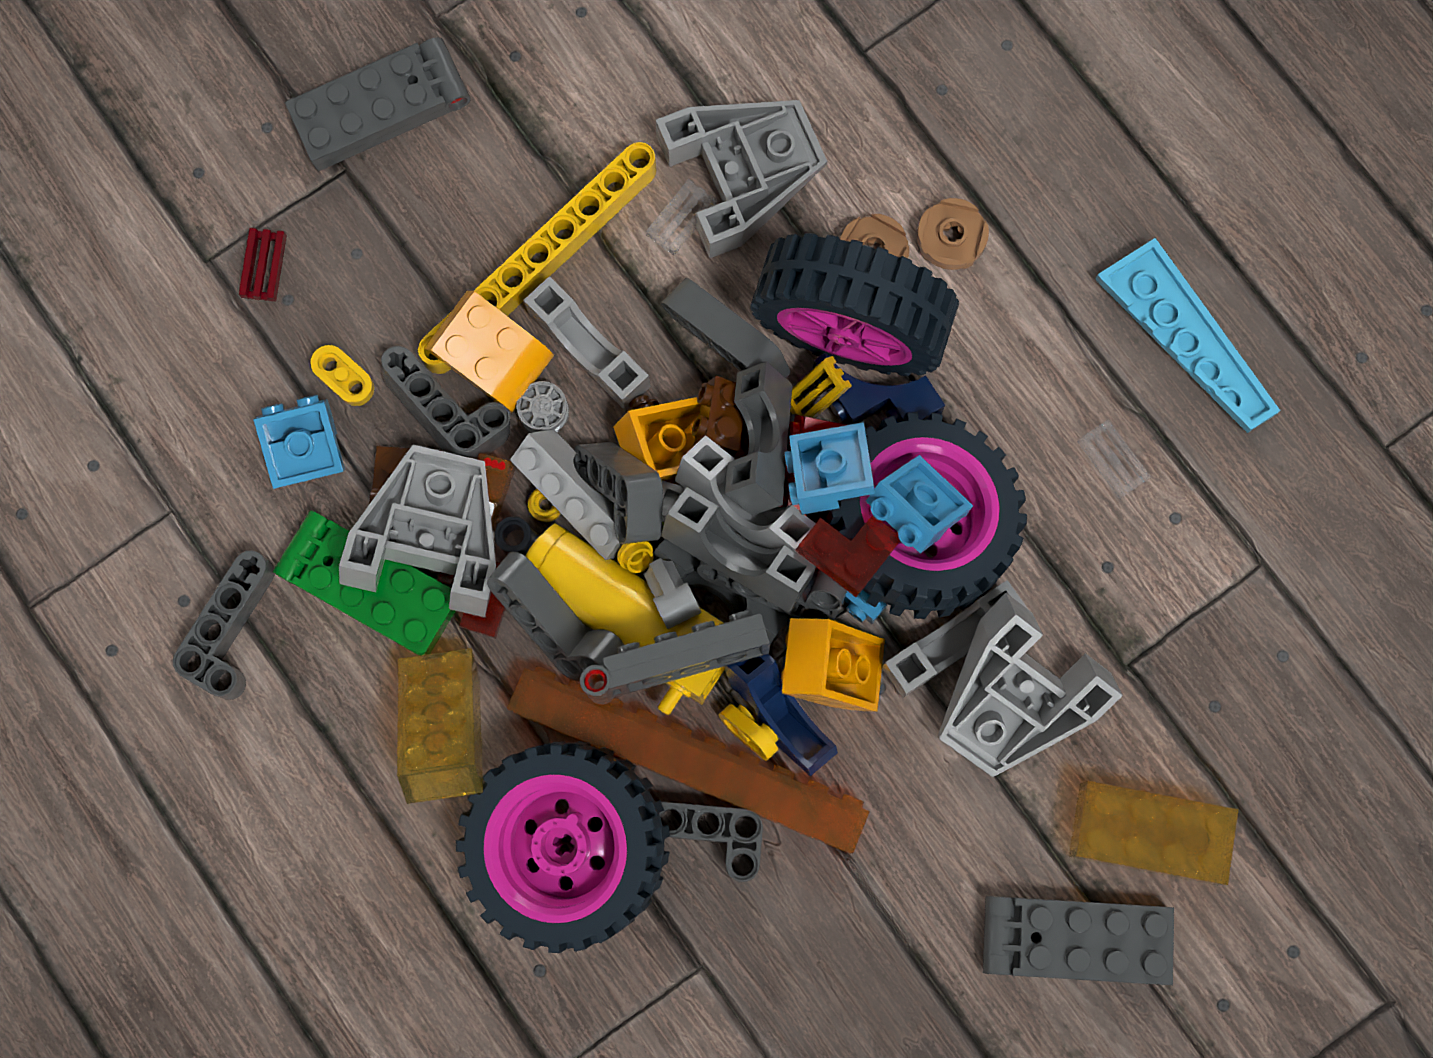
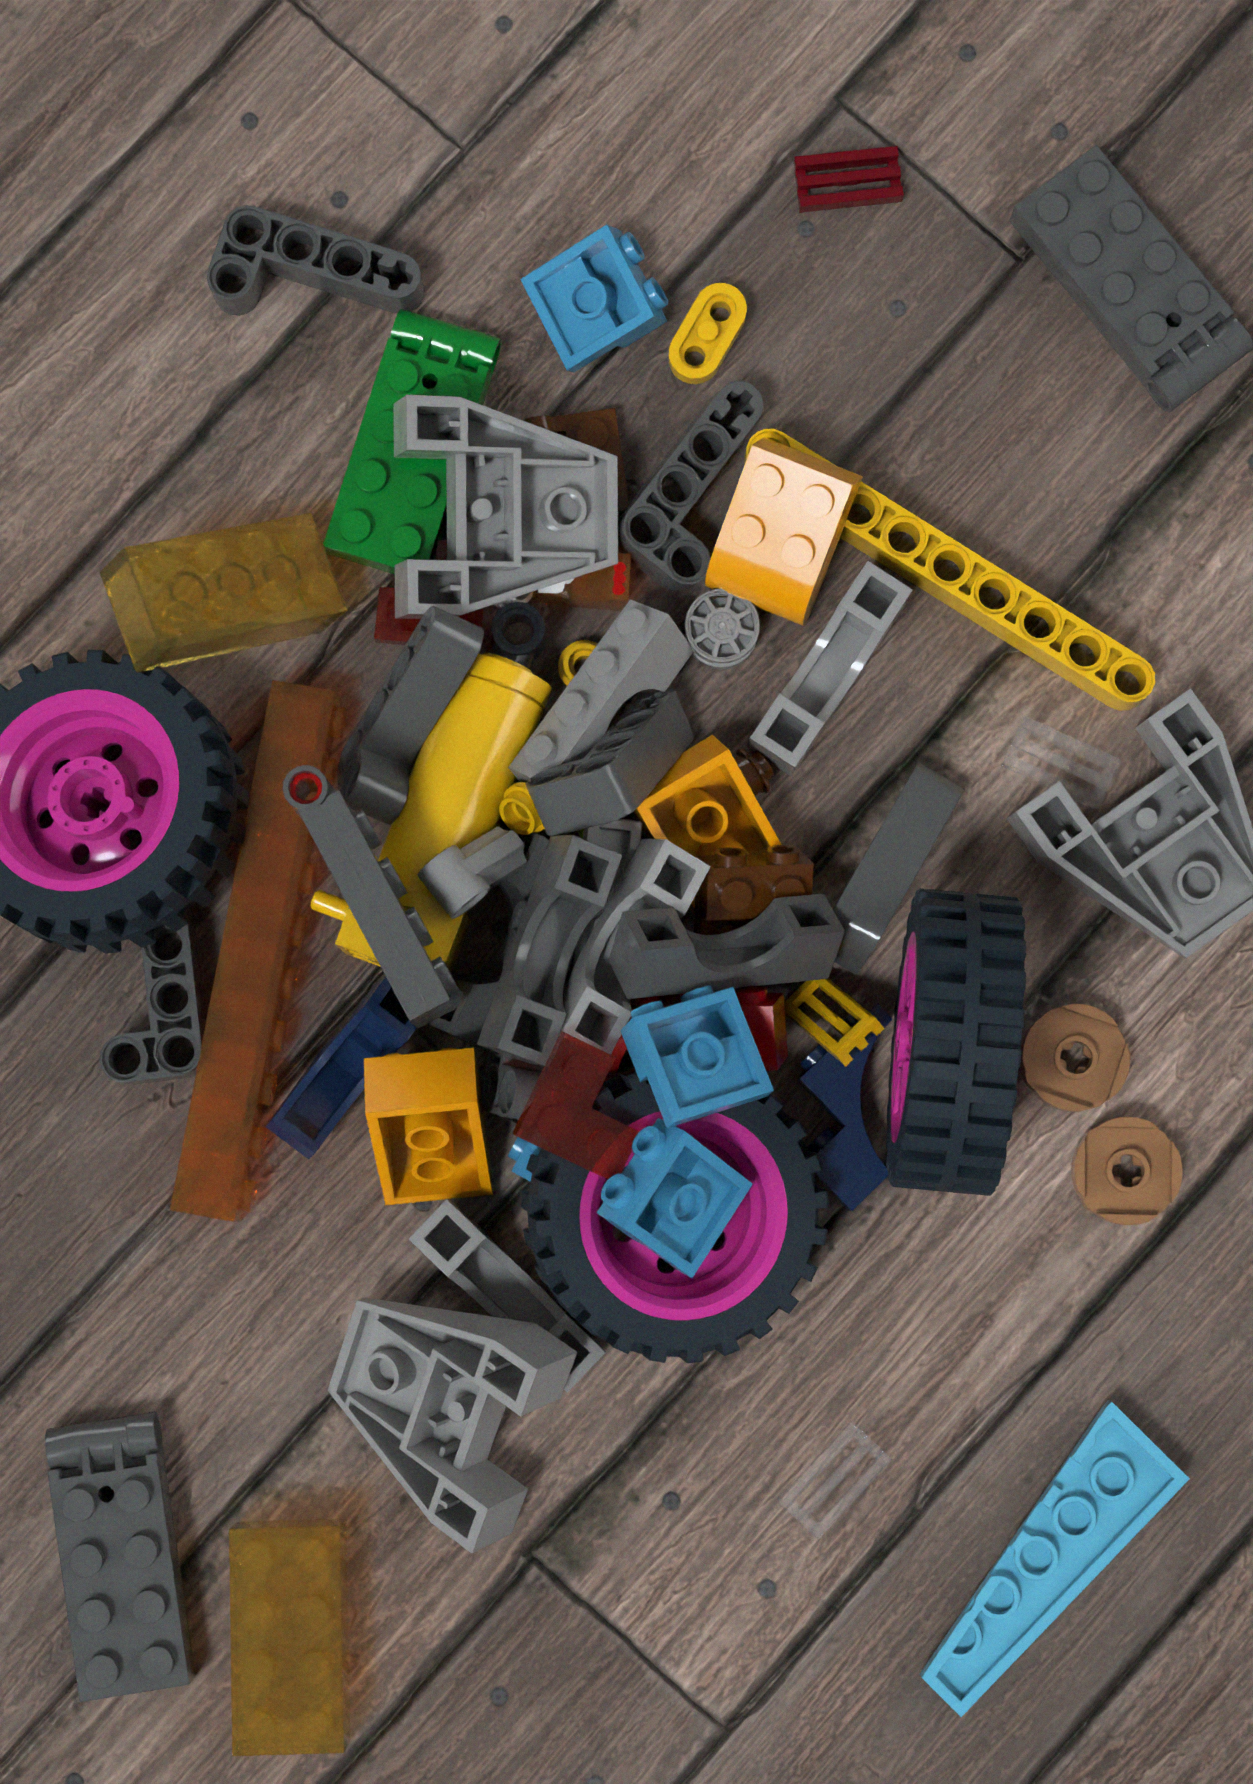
camera: 75 degrees right, 5 degrees up
(742, 725) = (304, 1044): yellow plate -> none

